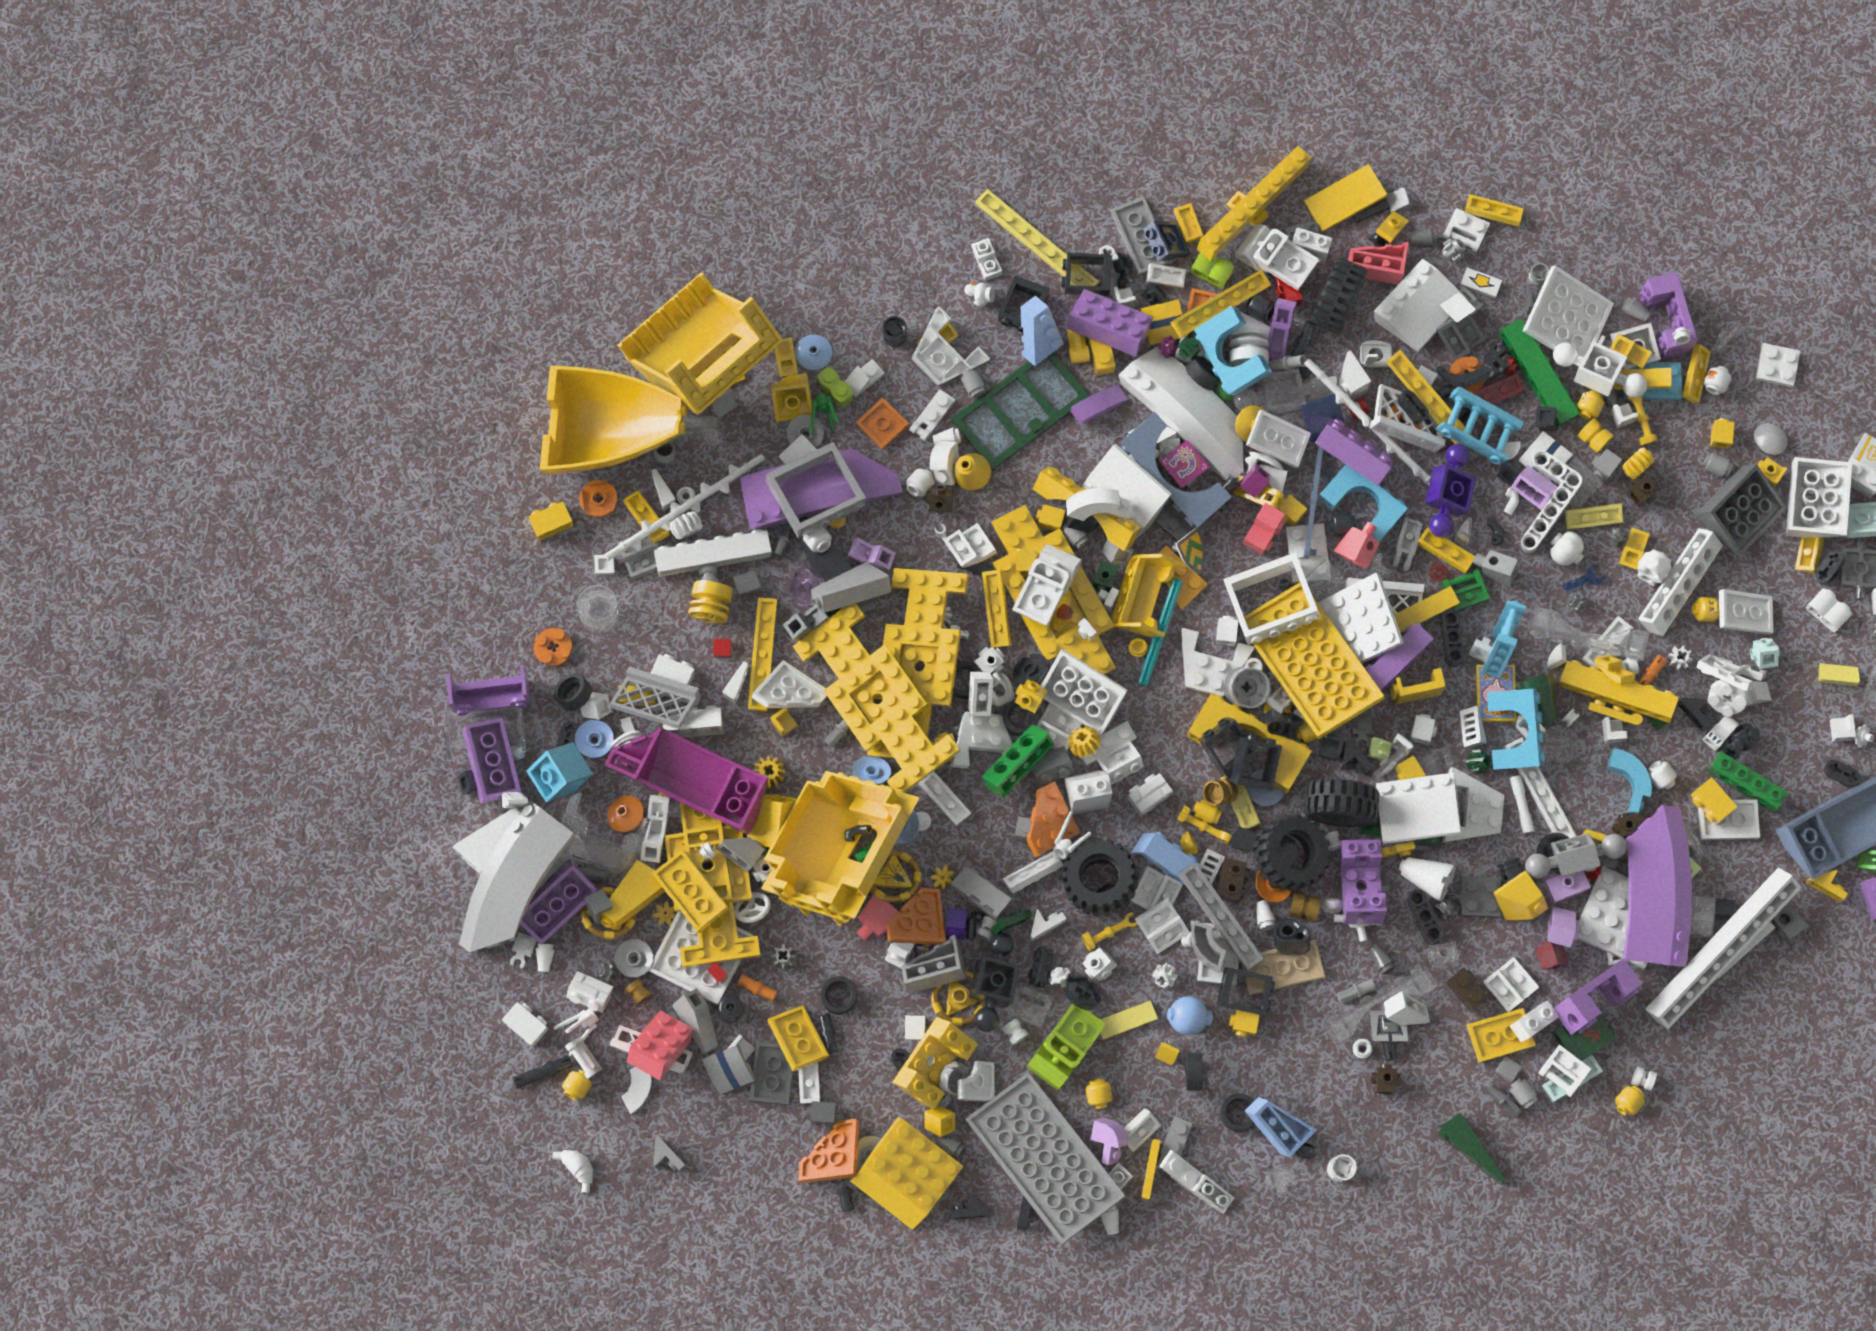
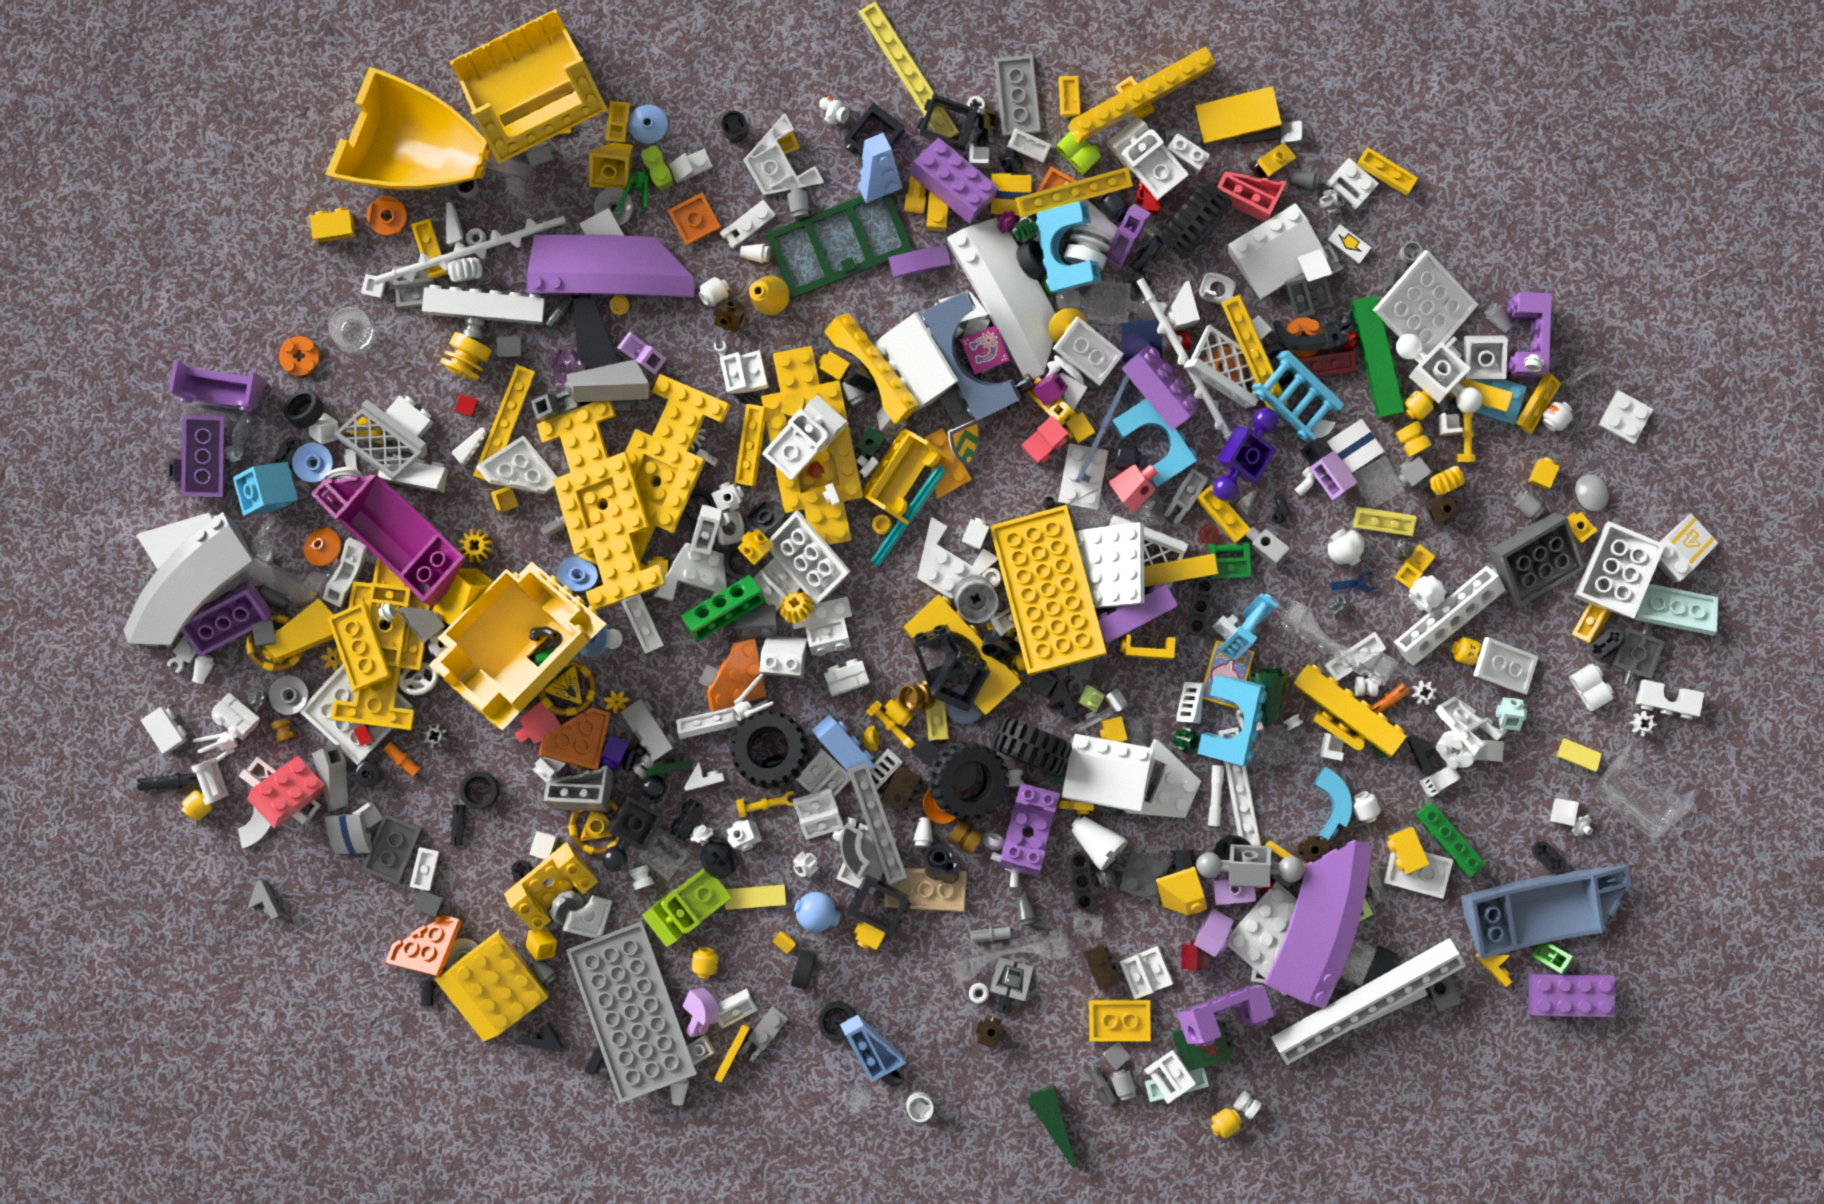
camera: 20 degrees right, 10 degrees up
(513, 799) = (209, 504): white slope -> none
(578, 1165) = (177, 883): white piece -> none
(798, 1038) = (426, 822): yellow tile -> none
(802, 464) = (596, 242): light grey window -> none
(818, 540) = (590, 322): white head -> none
(942, 459) = (741, 276): white brick -> none
(986, 259) = (852, 76): white slope -> none
(1098, 501) = (881, 367): white arch -> none
(1166, 240) = (1039, 108): plate -> none
(1196, 1182) = (773, 1078): white slope -> none
(1263, 573) = (1024, 485): white window -> none
(1288, 362) = (1123, 273): light grey pin -> none
(1406, 1010) = (1033, 969): white slope -> none
(1413, 406) = (1235, 357): black beam -> none
(1423, 729) = (1141, 691): white brick -> none
(1534, 1021) = (1155, 1019): white brick -> none
(1546, 418) = (1368, 406): black panel -> none
(1554, 502) = (1347, 497): white beam -> none
(1557, 656) = (1300, 655): white tile -> none
(1612, 668) = (1350, 685): yellow slope -> none
(1635, 354) = (1479, 364): yellow slope -> none
(1742, 739) = (1459, 795): black connector -> none

